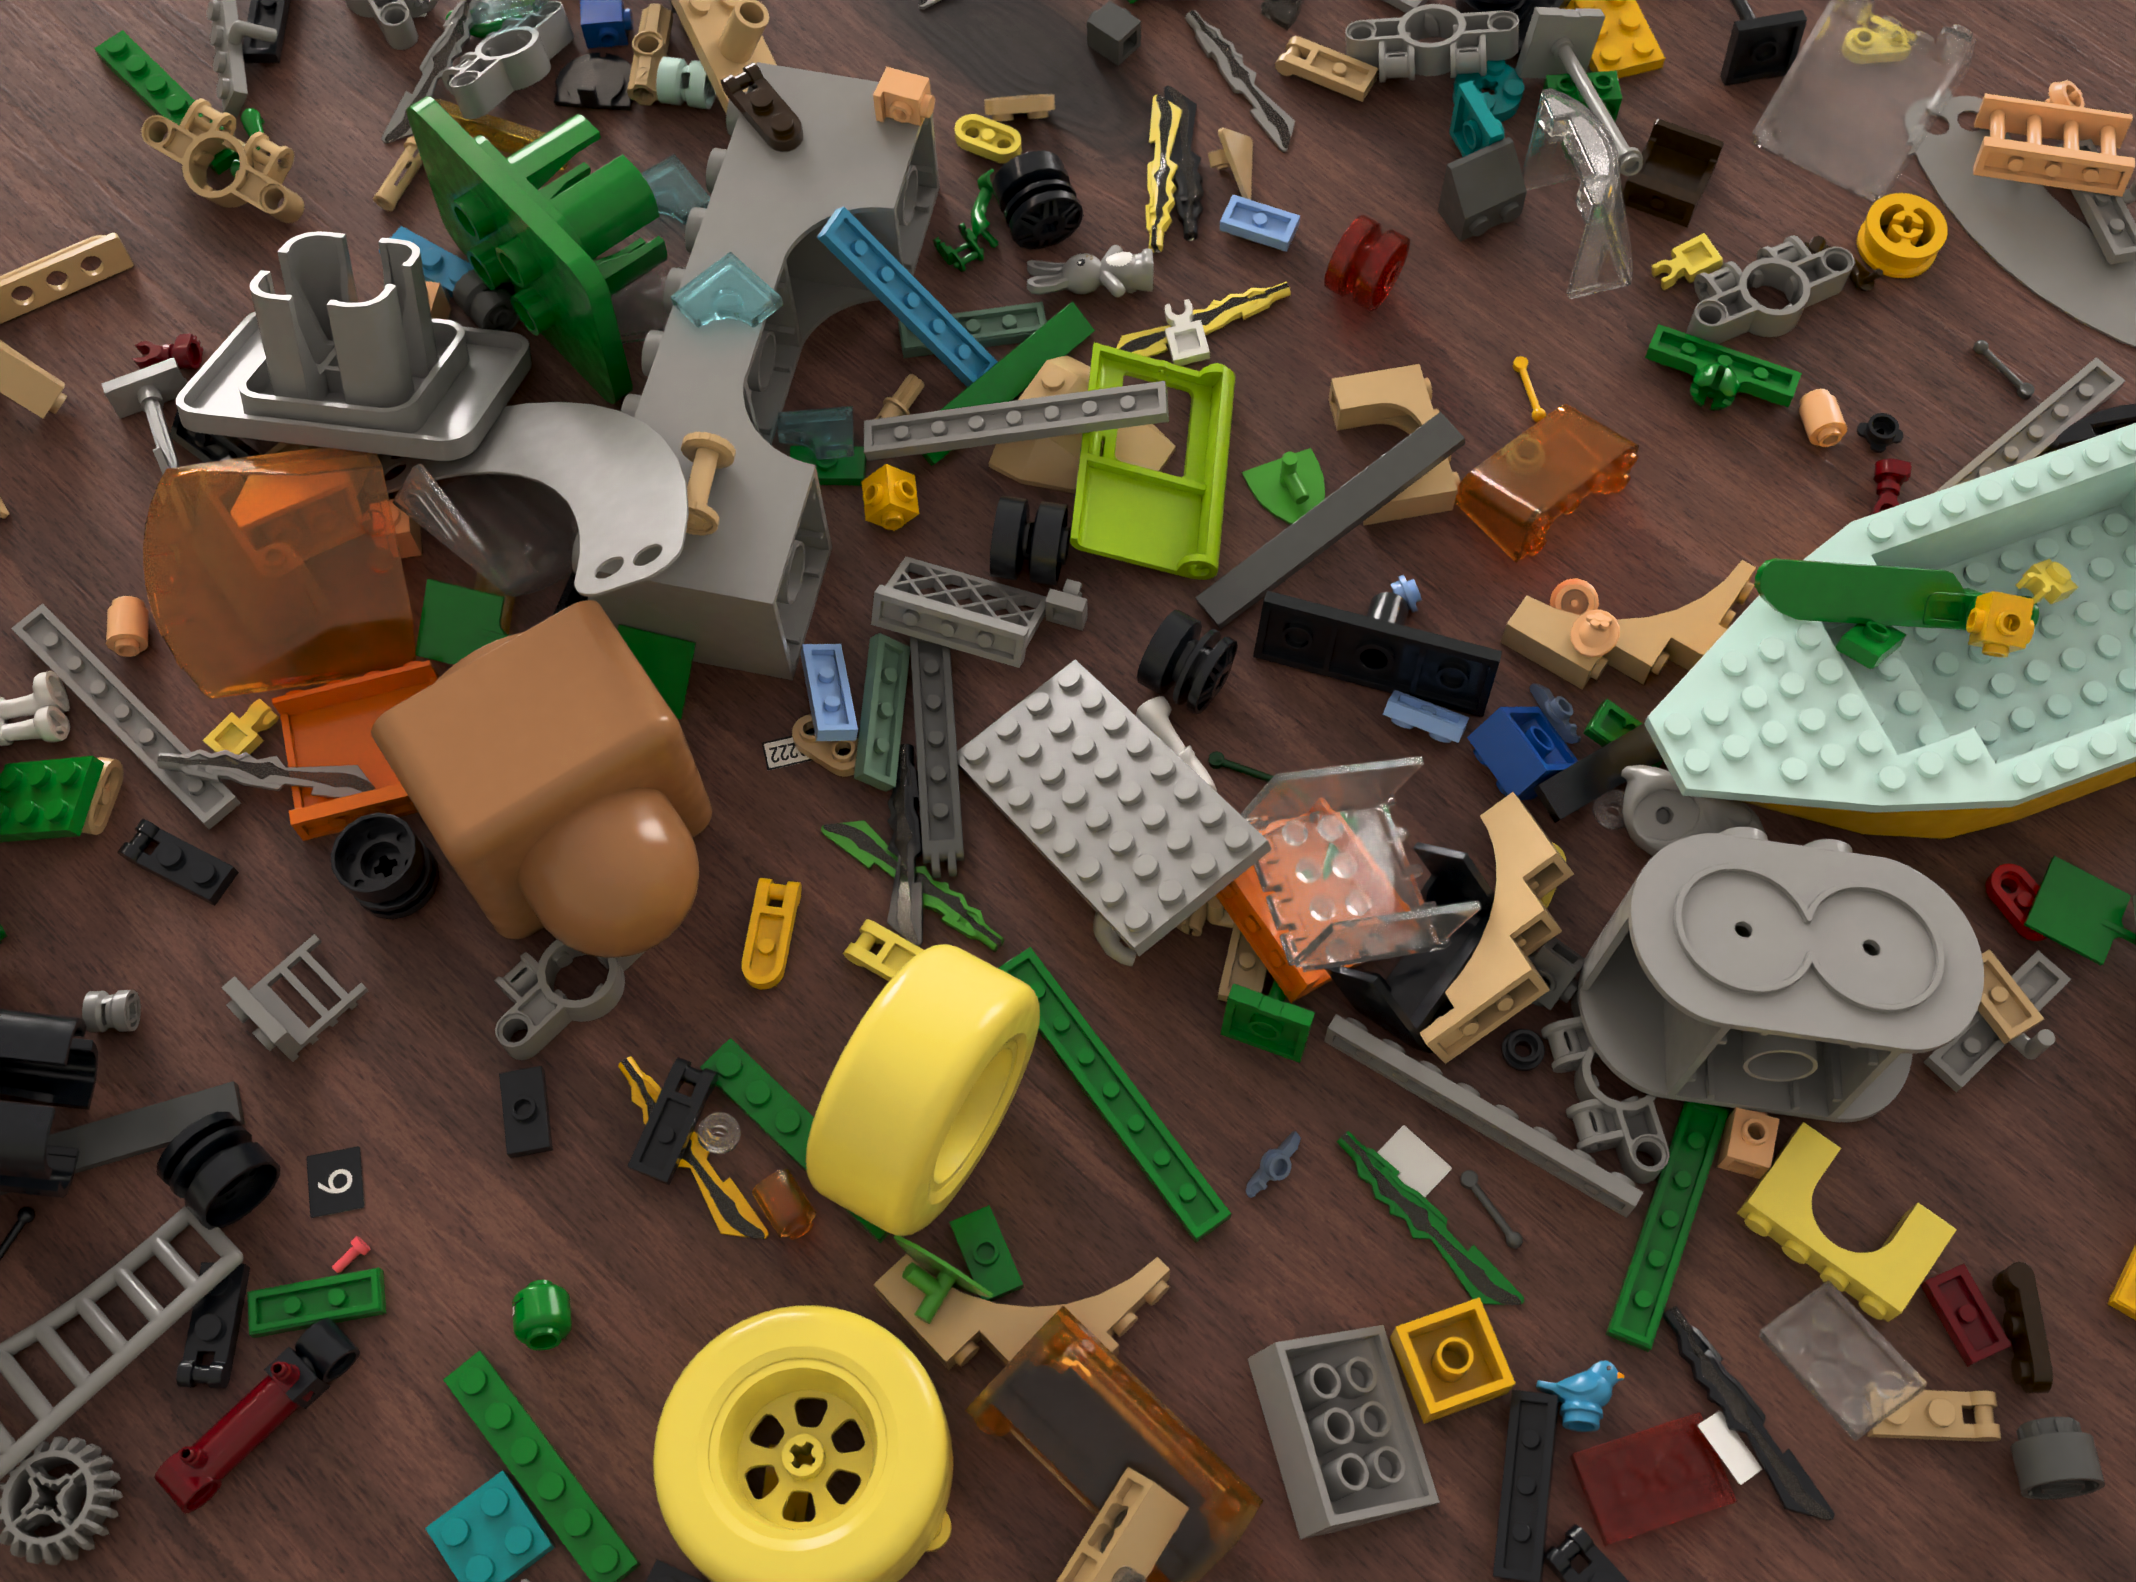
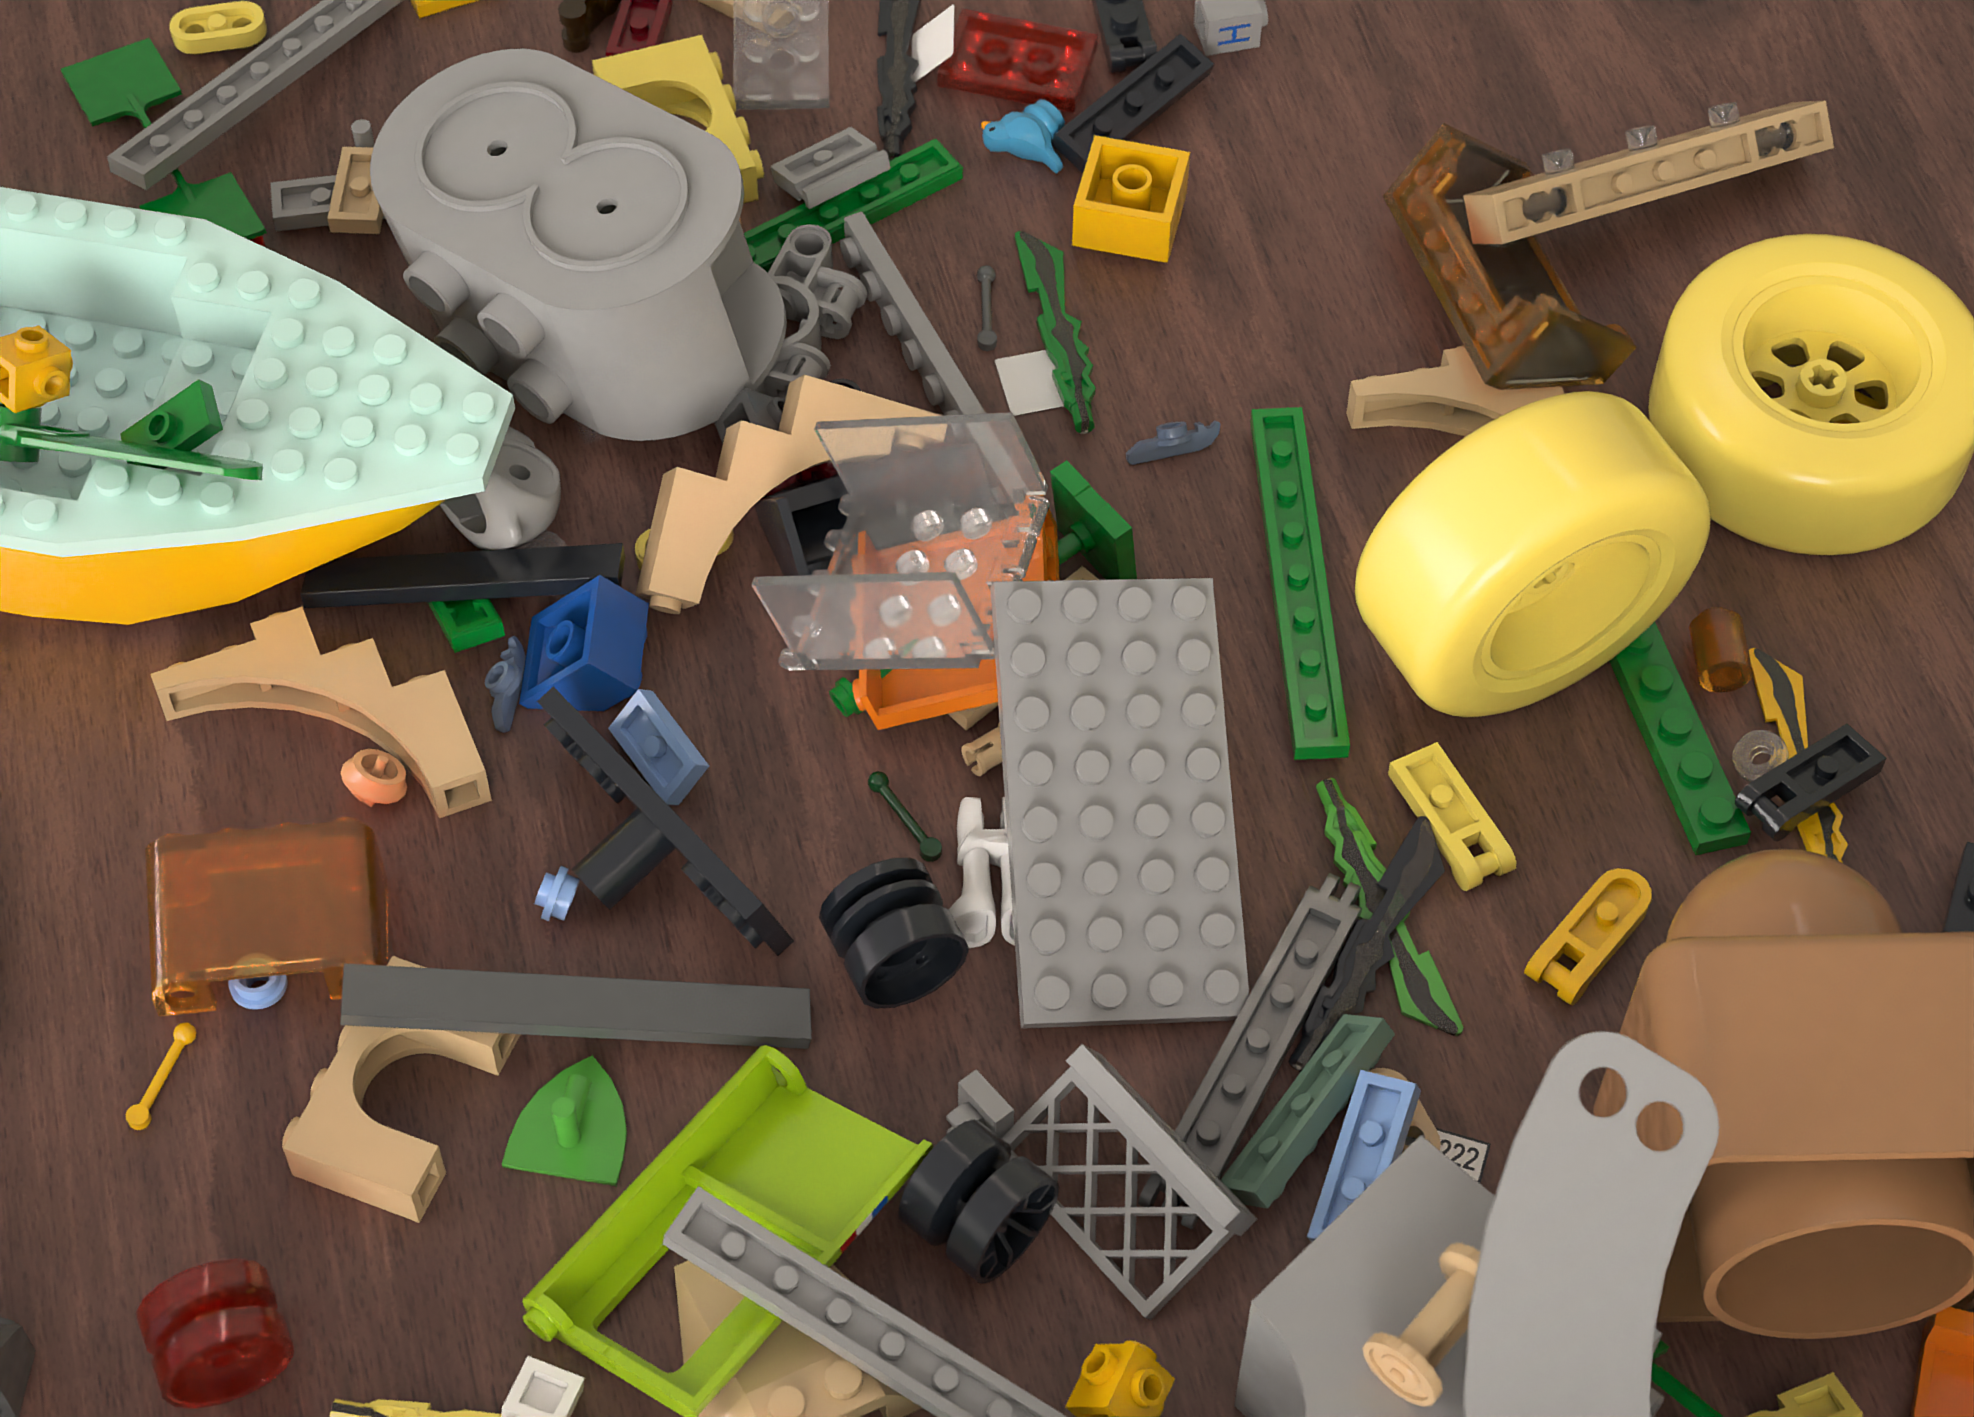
camera: 150 degrees left, 10 degrees down
(1341, 1430) = (1271, 213): light grey slope -> none
(1595, 633) = (408, 682): light nougat hat -> none
(1701, 1257) = (830, 167): none -> light grey plate

